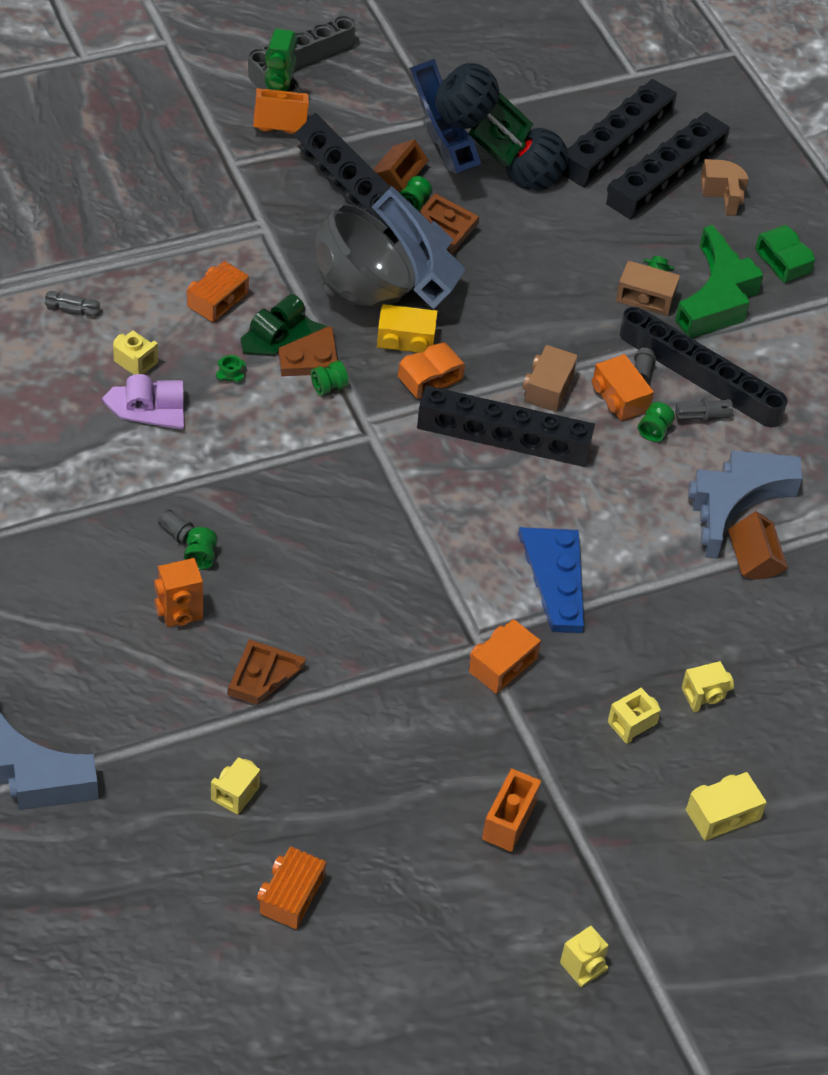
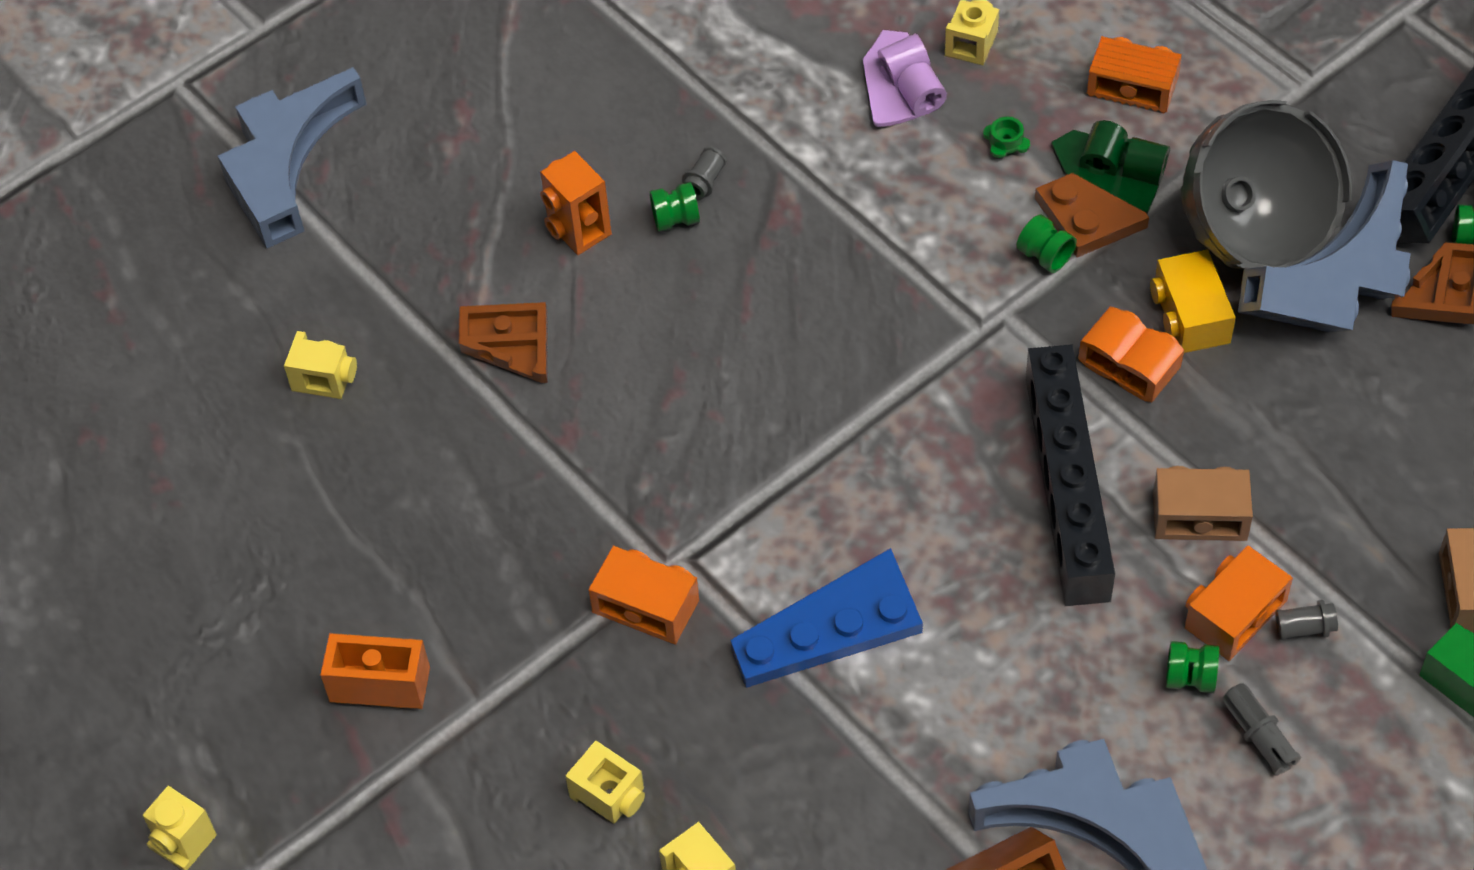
camera: 80 degrees right, 5 degrees up
(292, 887) = (185, 472): orange brick -> none
(704, 367) = (1346, 719): black beam -> none

